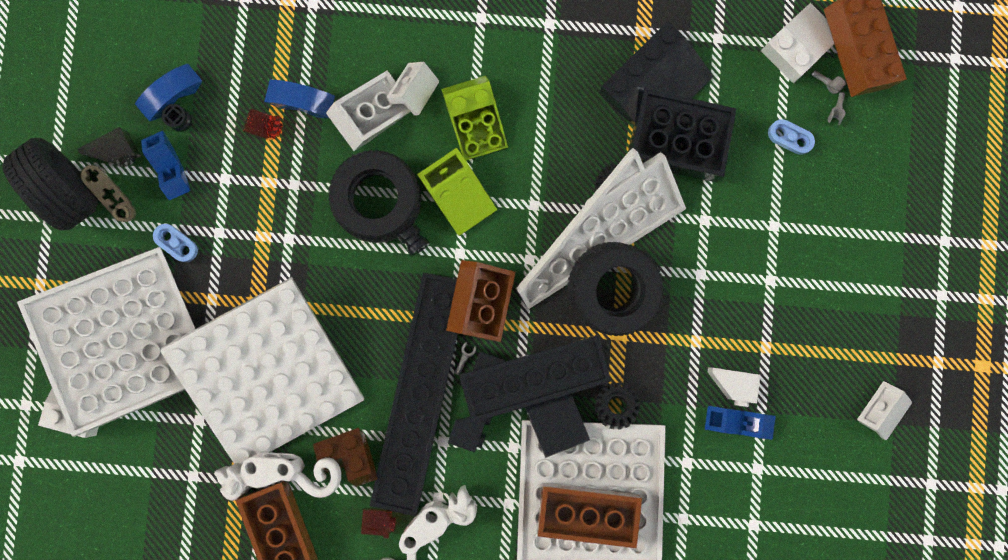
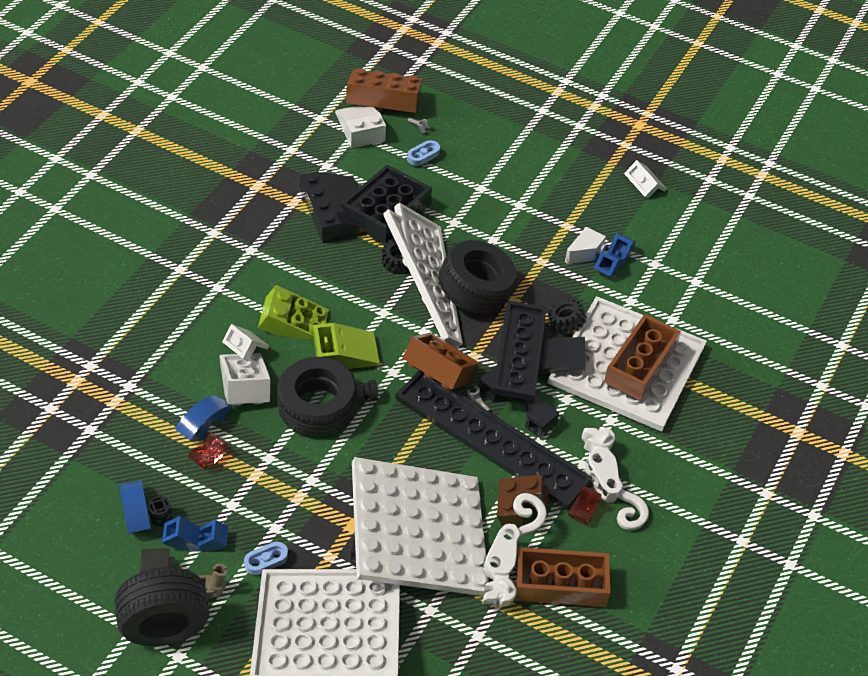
camera: 65 degrees left, 35 degrees down
(833, 86) = (401, 120): light grey hand -> none

